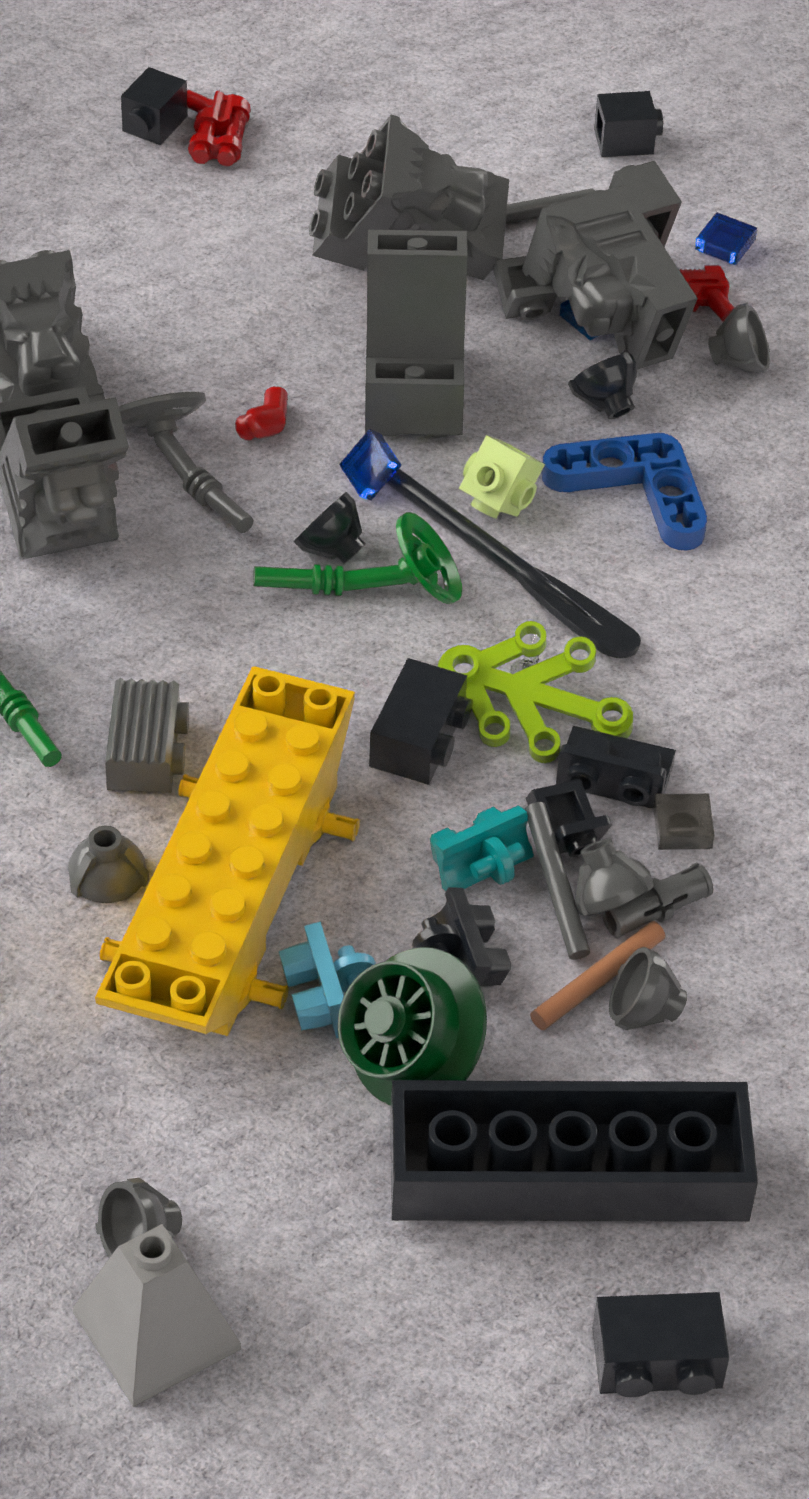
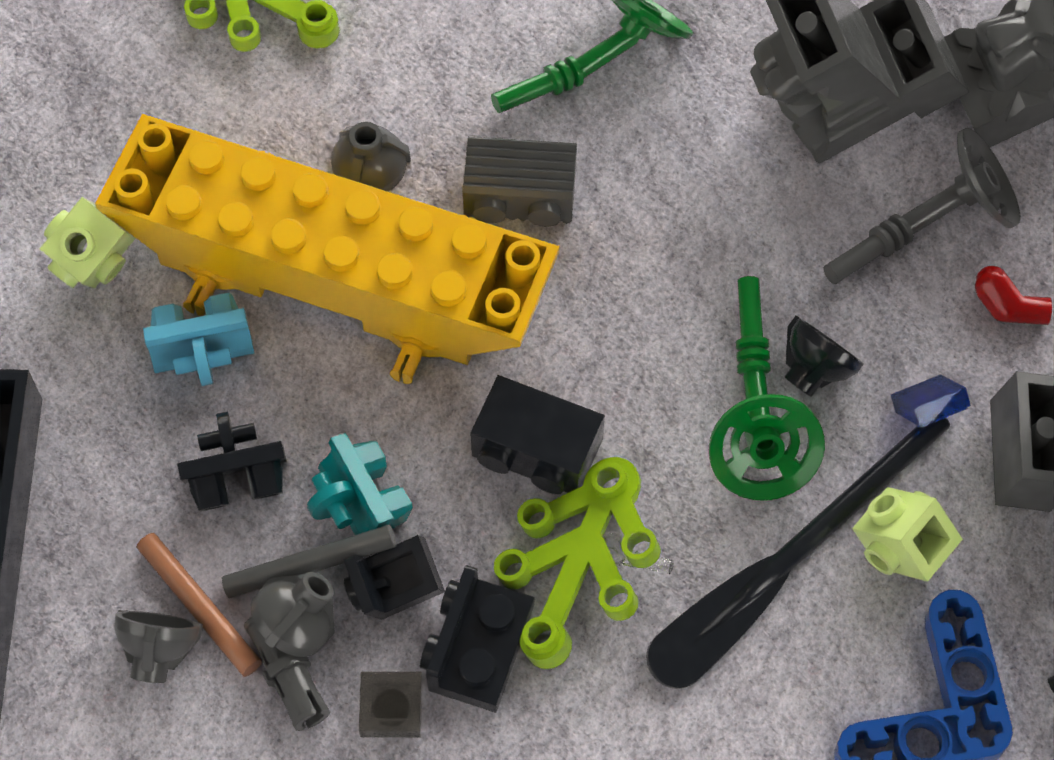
camera: 95 degrees right, 15 degrees up
(225, 1072) = (104, 250): none -> yellowish green brick
(413, 1020) = (103, 394): dark green piece -> none

